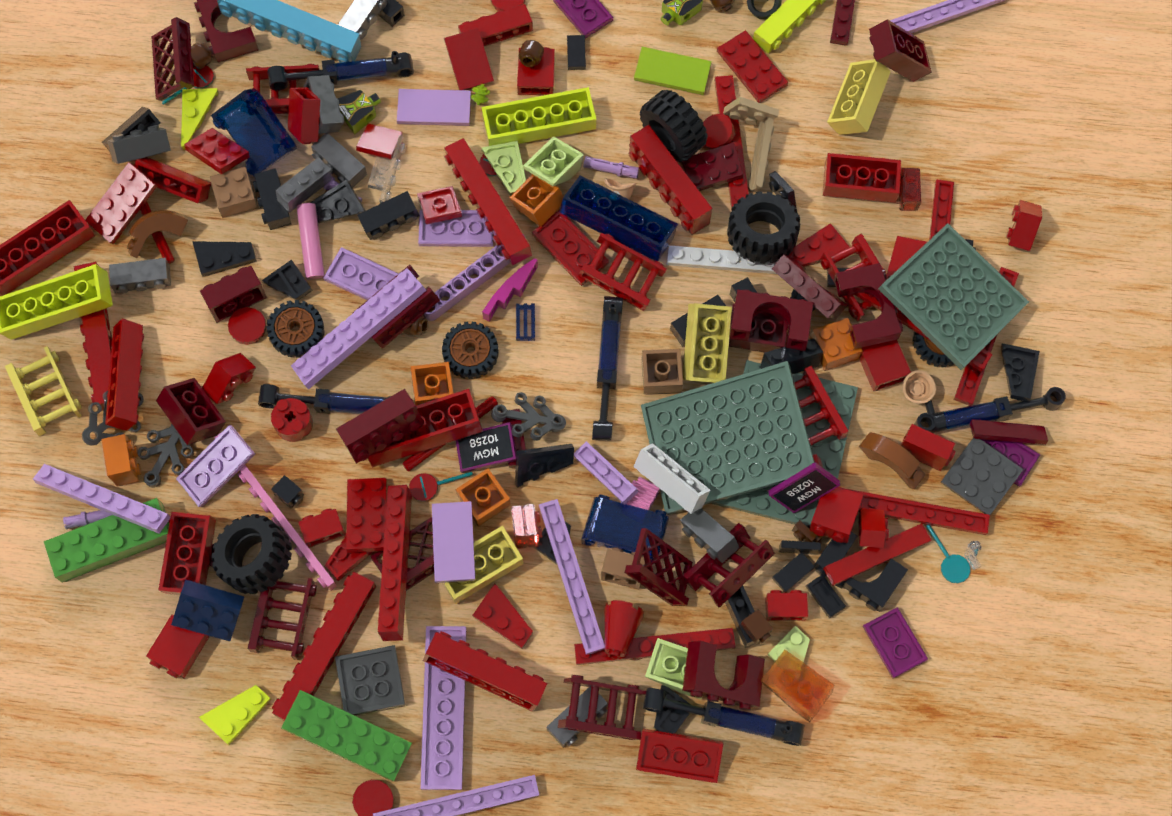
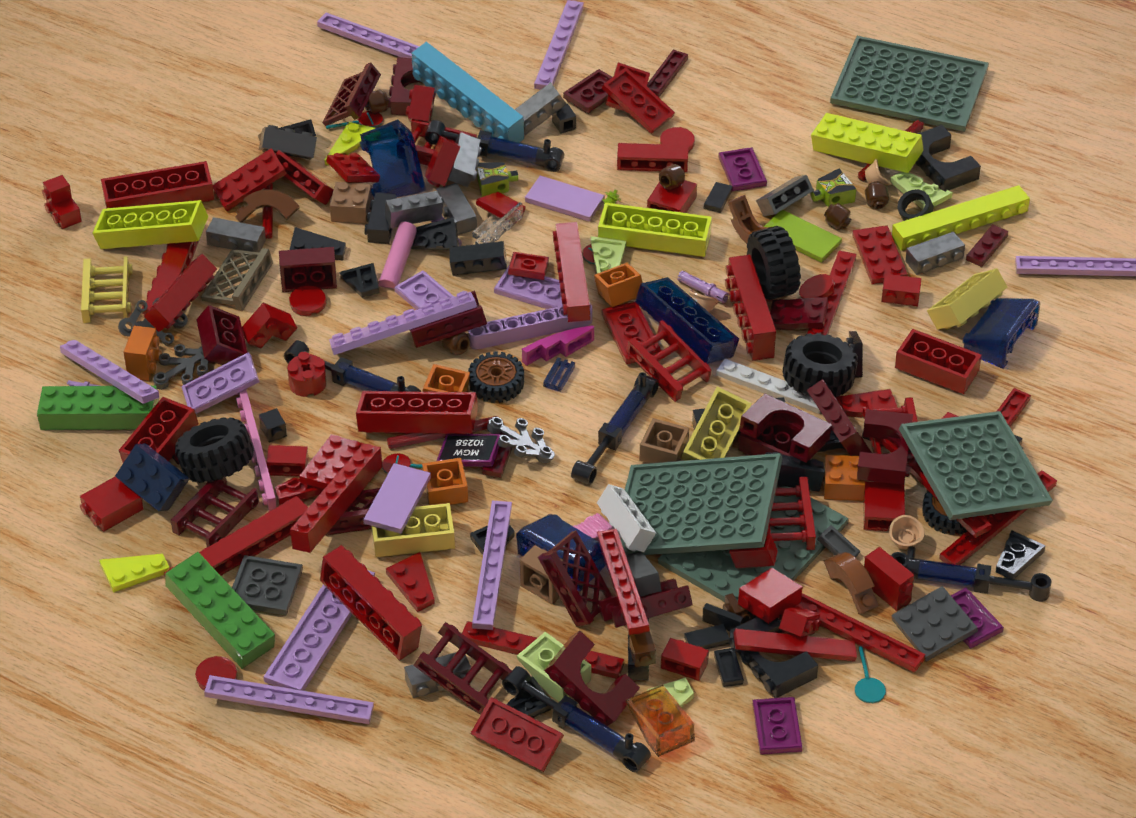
camera: 25 degrees right, 25 degrees down
(181, 319) = (249, 280): none -> dark tan fence
(248, 48) = (421, 103): none -> red brick
(285, 319) = (347, 311): wheel -> none
(380, 426) = (379, 387): dark red brick -> none
(468, 59) = (614, 169): red tile -> none
(525, 526) = (471, 515): clear red brick -> none
(538, 461) = (512, 474): black wing -> none
(555, 162) = (650, 260): yellowish green slope -> none
(605, 473) = (568, 500): lavender plate -> none
(620, 627) = (517, 613): red cone -> none
(624, 83) = (743, 219): none -> dark orange arch
(640, 31) = (784, 195): none -> flat silver brick
(697, 37) = (837, 216): none -> reddish brown head
(709, 562) = (623, 582): none -> red plate
(763, 116) = (858, 282): tan bracket -> none
(792, 103) = (901, 290): none -> red brick
(803, 48) = (935, 253): none -> flat silver brick
(804, 487) = (746, 558): tile -> none
(862, 421) = (836, 542): none -> dark grey tile
(899, 50) = (1022, 269): dark red brick -> none
(901, 118) = (1001, 328): none -> clear blue windscreen
(910, 189) = (981, 385): clear red brick -> none
(971, 554) = (895, 677): clear arm -> none
(1008, 432) = (979, 596): dark red tile -> none
(1026, 221) = (1080, 443): red brick -> none

